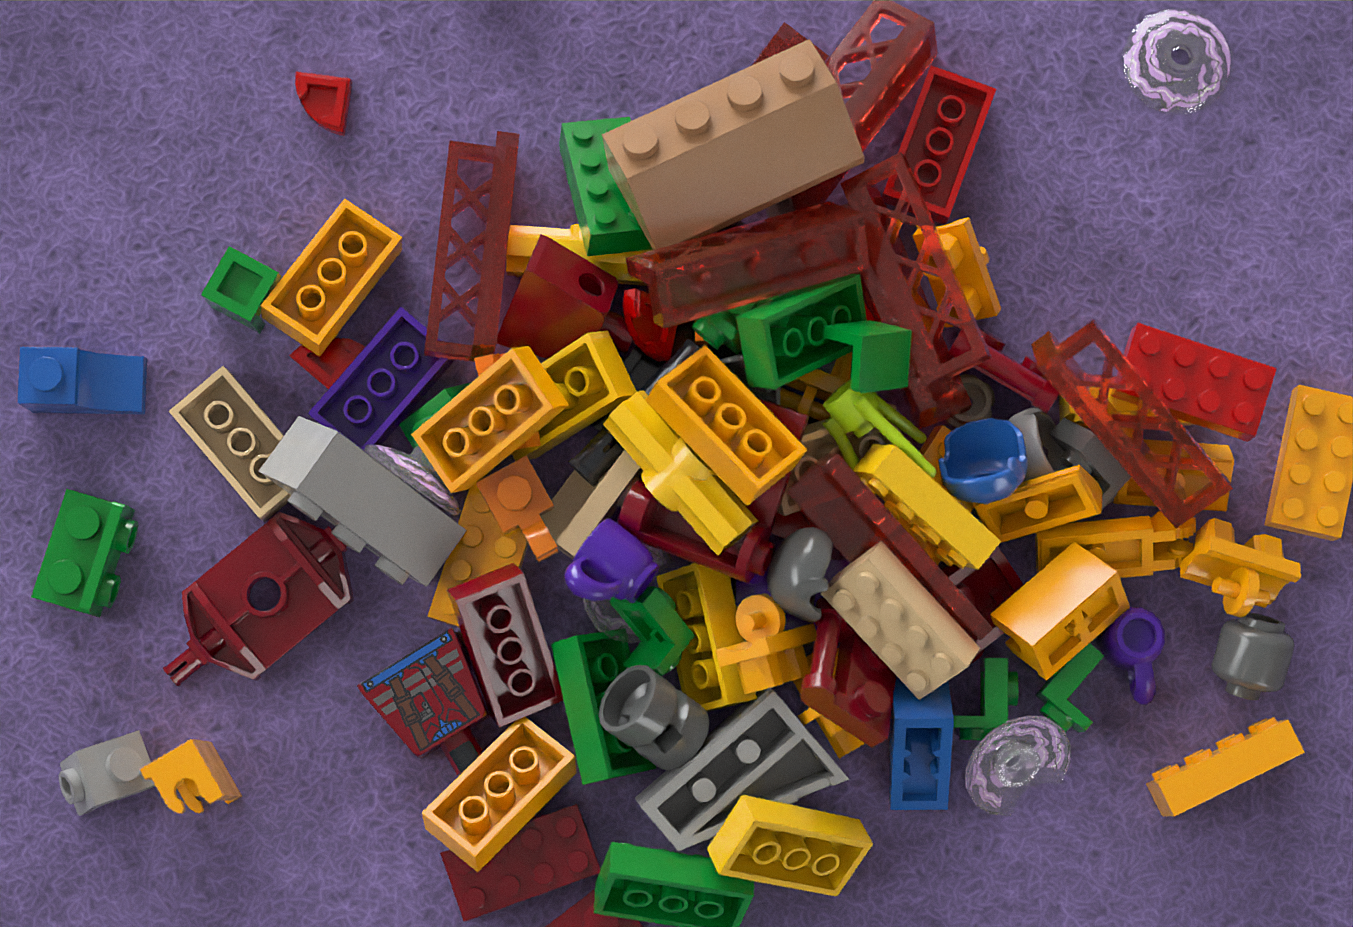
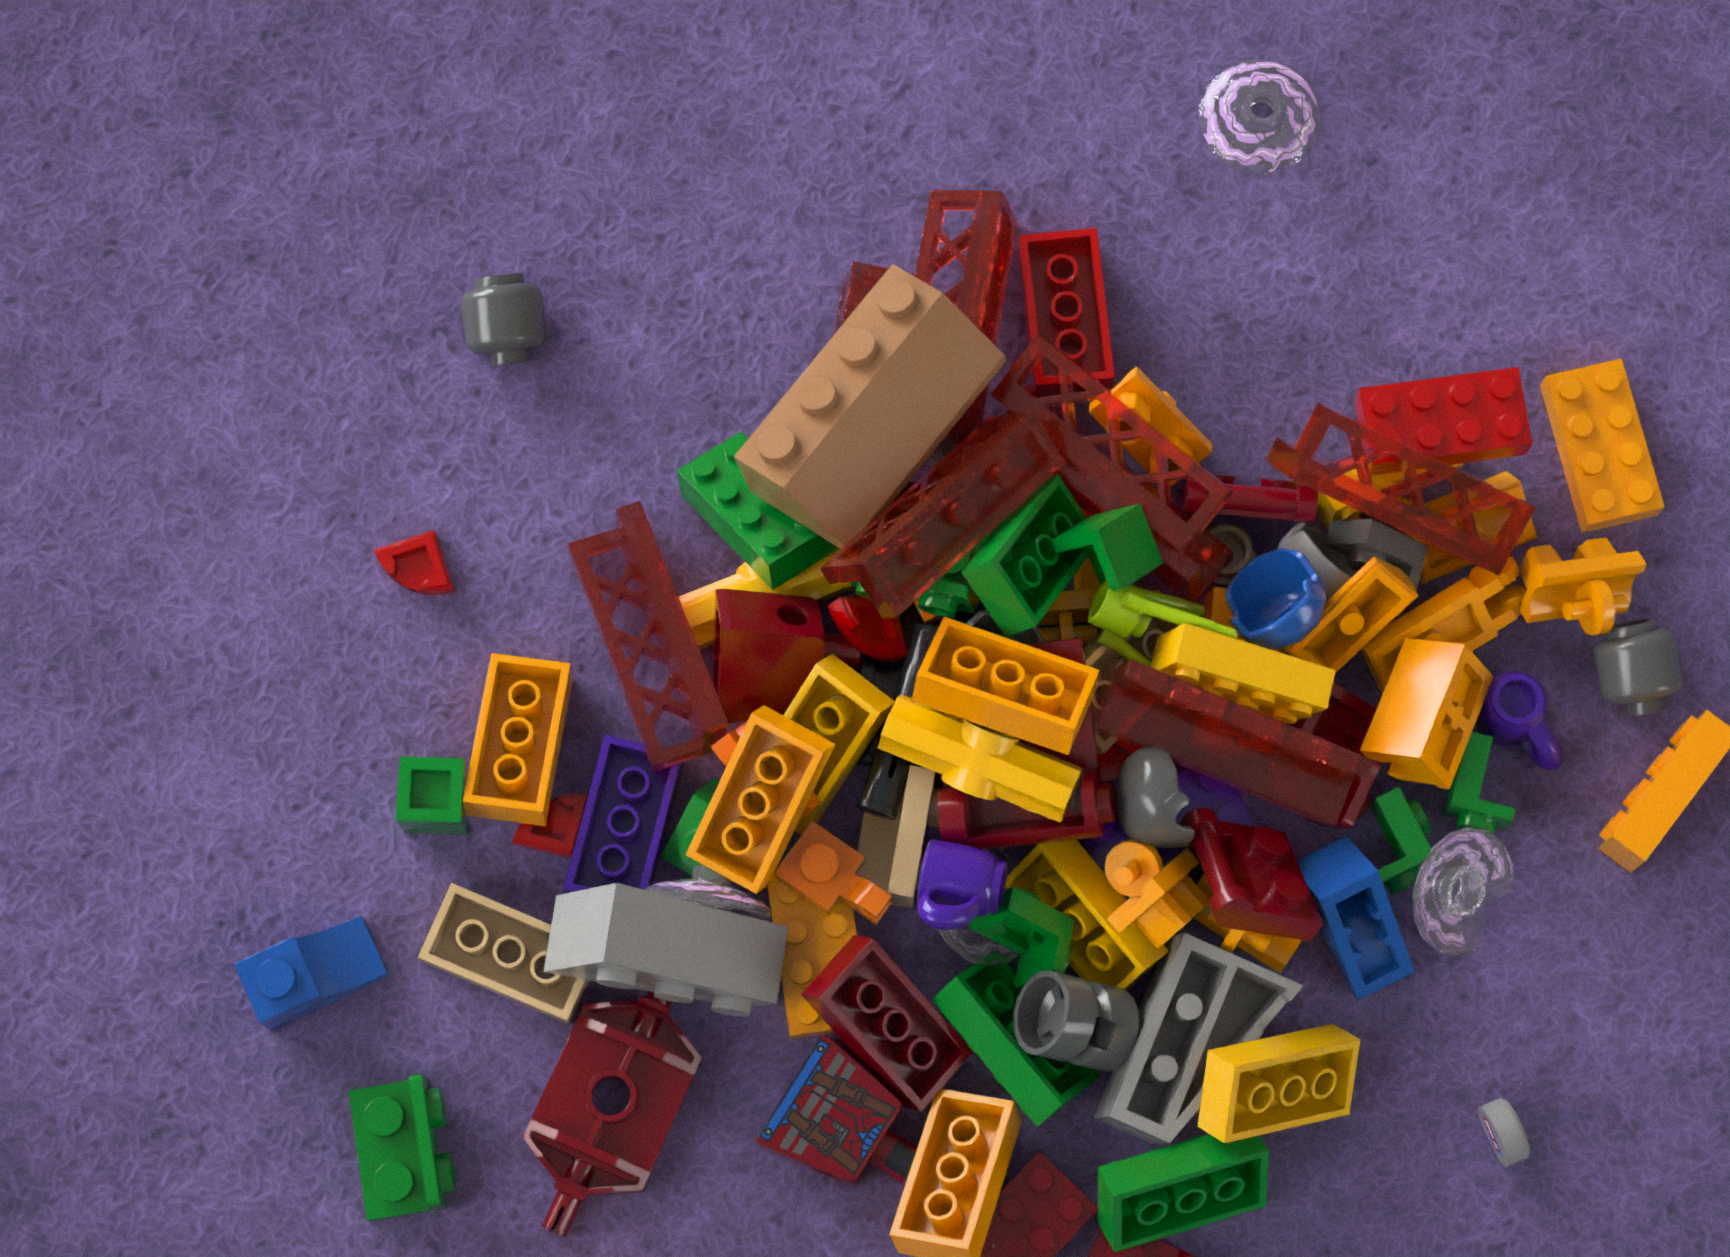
camera: 25 degrees left, 5 degrees down
(900, 620) = (1275, 799): tan piece -> none

